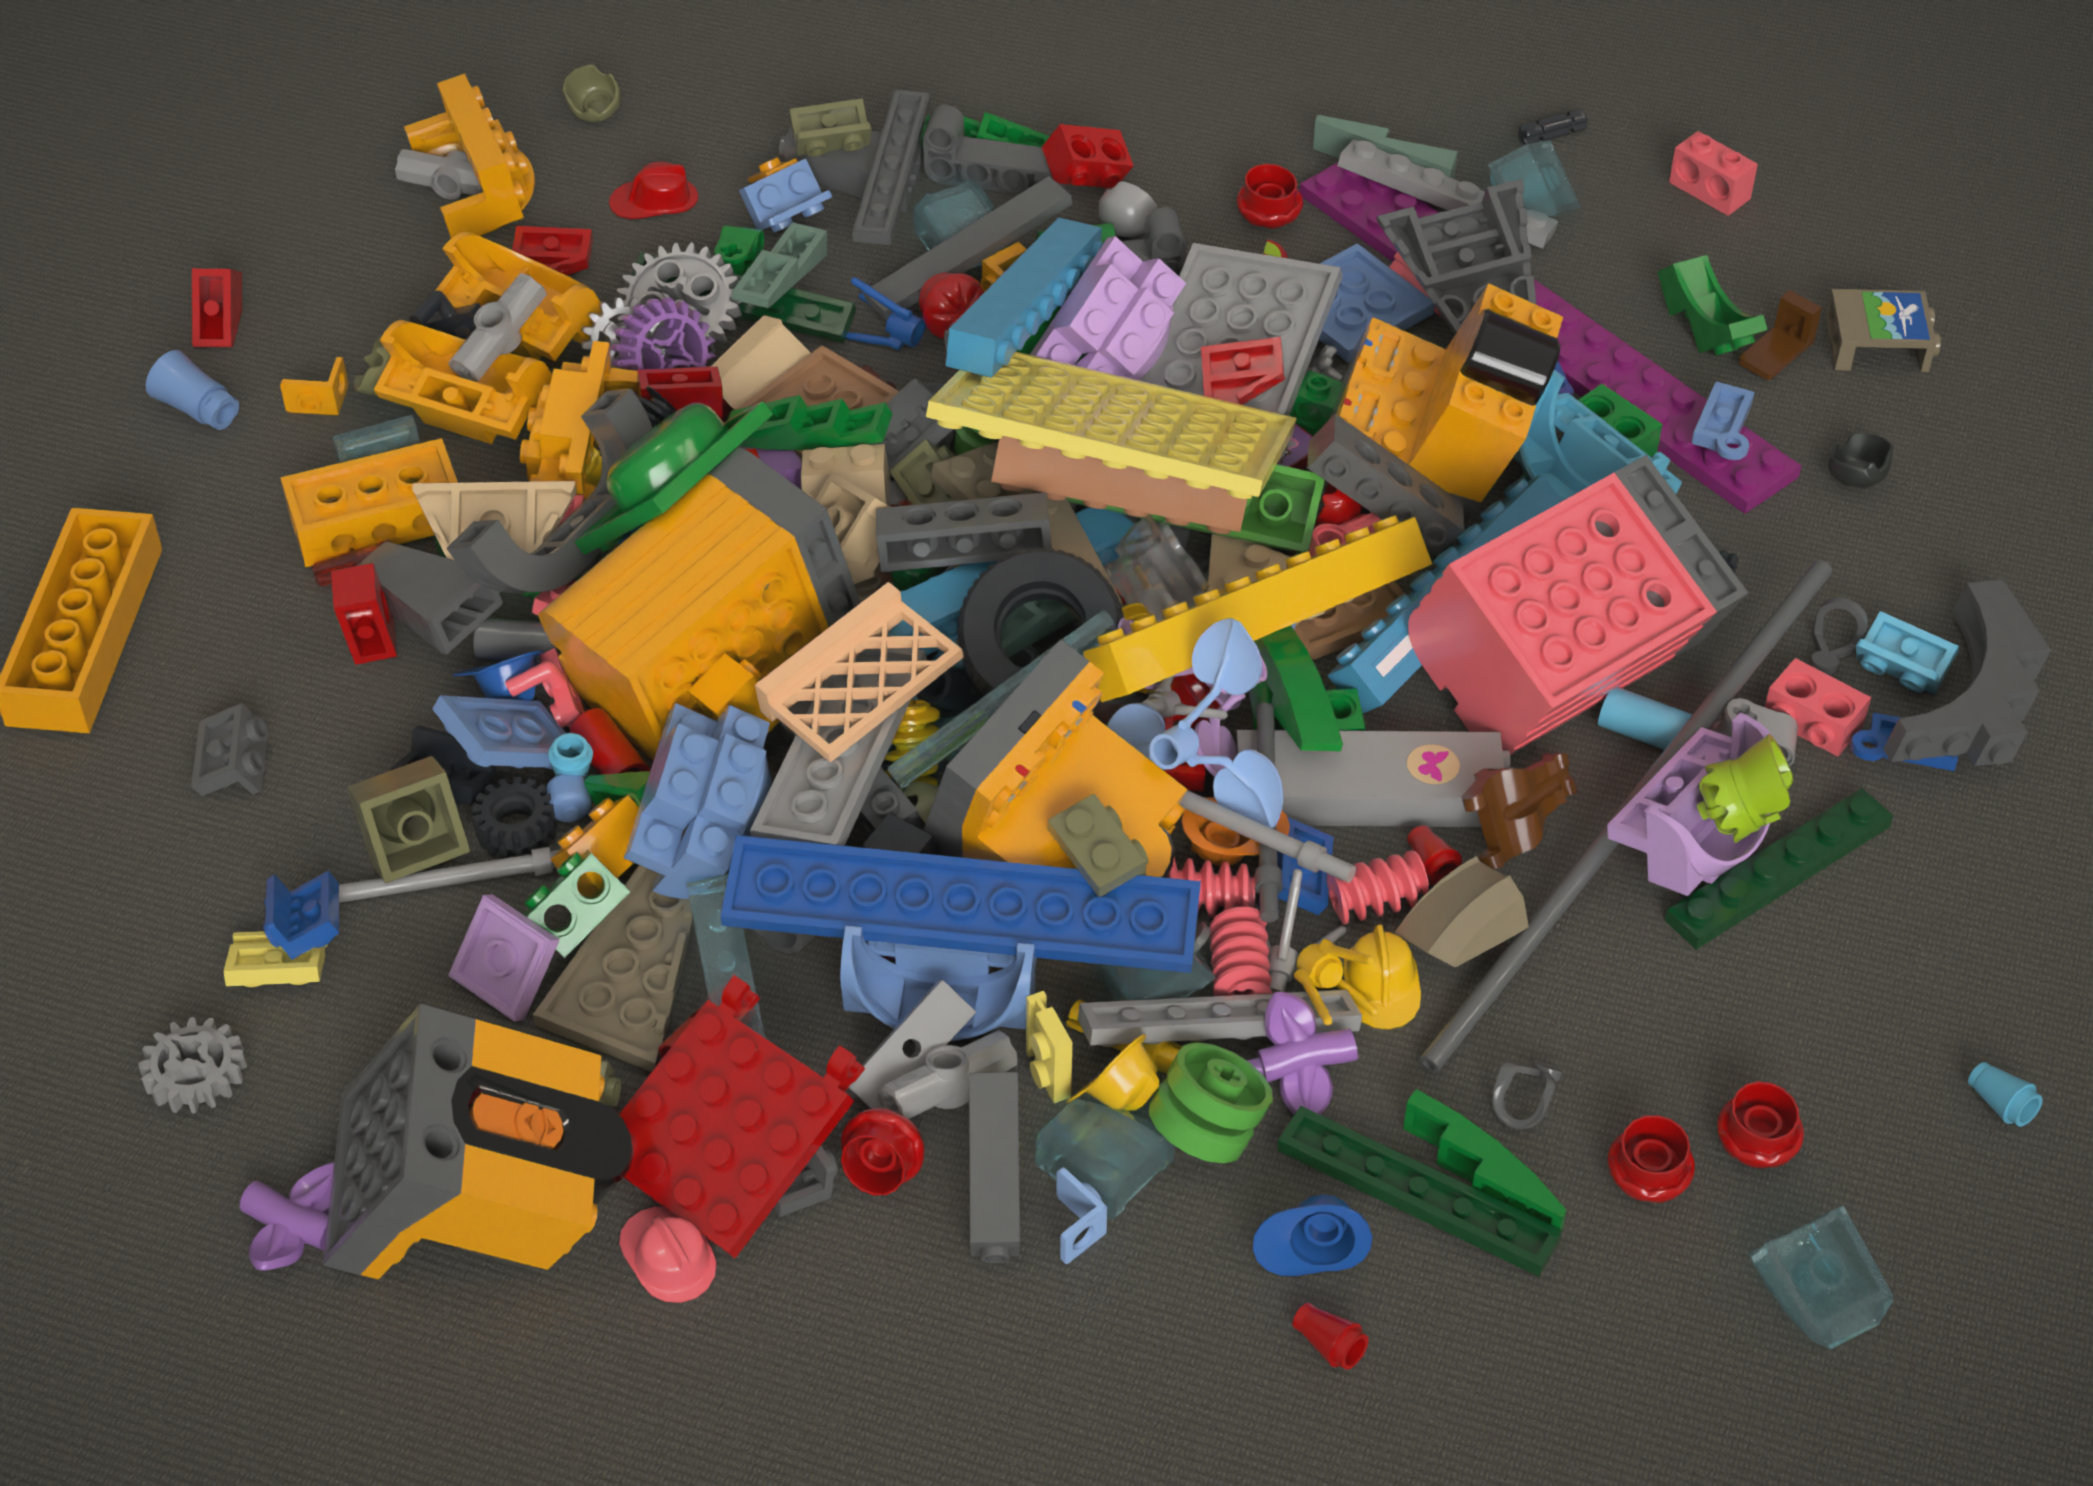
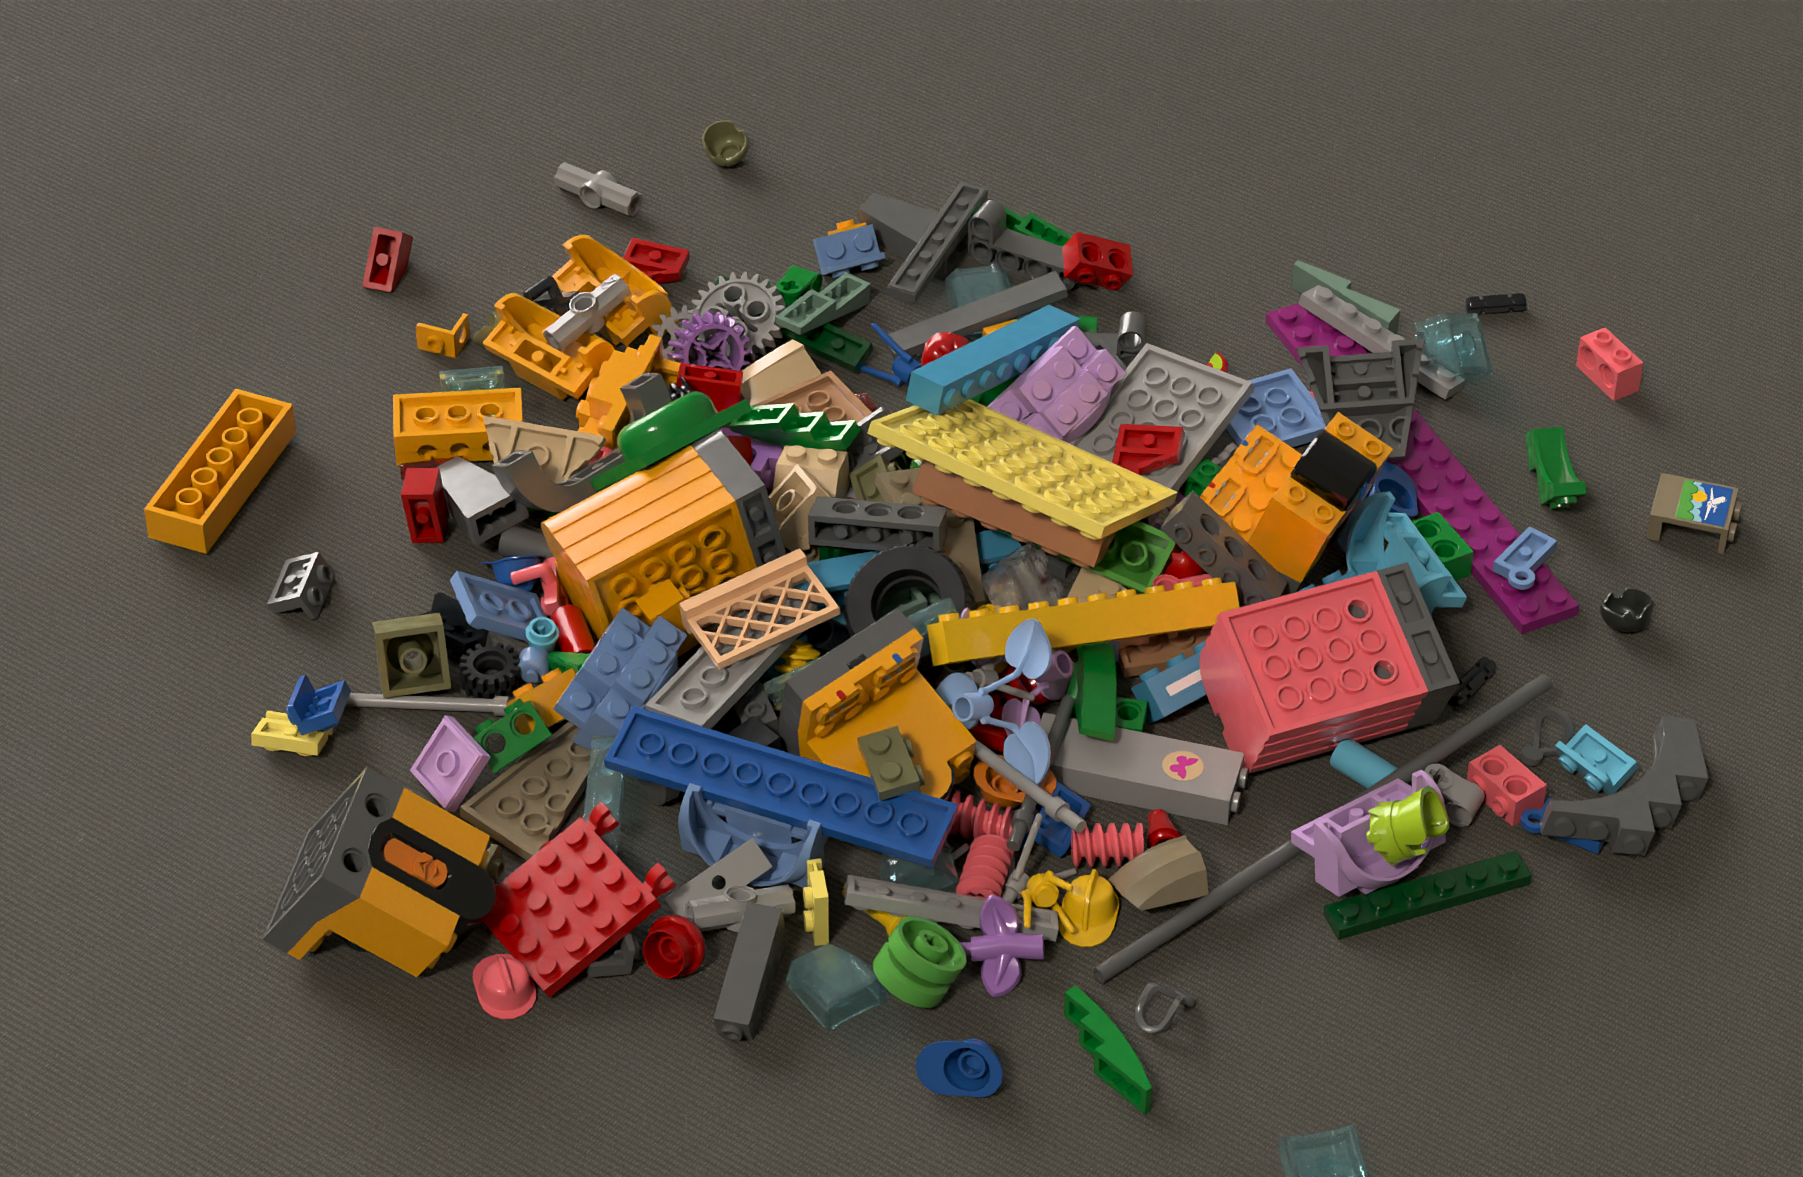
camera: 15 degrees right, 5 degrees down
(189, 389) = (347, 316): medium blue plant -> none
(192, 1065) = (213, 792): light grey gear -> none
(290, 1220) = (248, 908): medium lavender plant -> none
(493, 154) = (626, 180): light orange piece -> none
(654, 191) = (750, 229): red piece -> none
(830, 127) = (897, 203): olive bracket -> none
(1088, 1206) = (809, 1018): light blue bracket -> none
(1126, 209) = (1110, 306): light grey hair -> none
(1126, 1081) = (862, 932): yellow piece -> none
(1269, 197) = (1234, 319): red piece -> none
(1334, 1337) = (953, 1137): red cone -> none
(1420, 1191) = (1055, 1056): dark green plate -> none
(1516, 803) = (1234, 807): reddish brown animal -> none
(1652, 1159) = (1233, 1070): red piece -> none
(1761, 1126) = (1326, 1064): red piece -> none
(1790, 336) = (1615, 506): reddish brown bracket -> none
(2006, 1094) = (1526, 1085): medium azure cone -> none

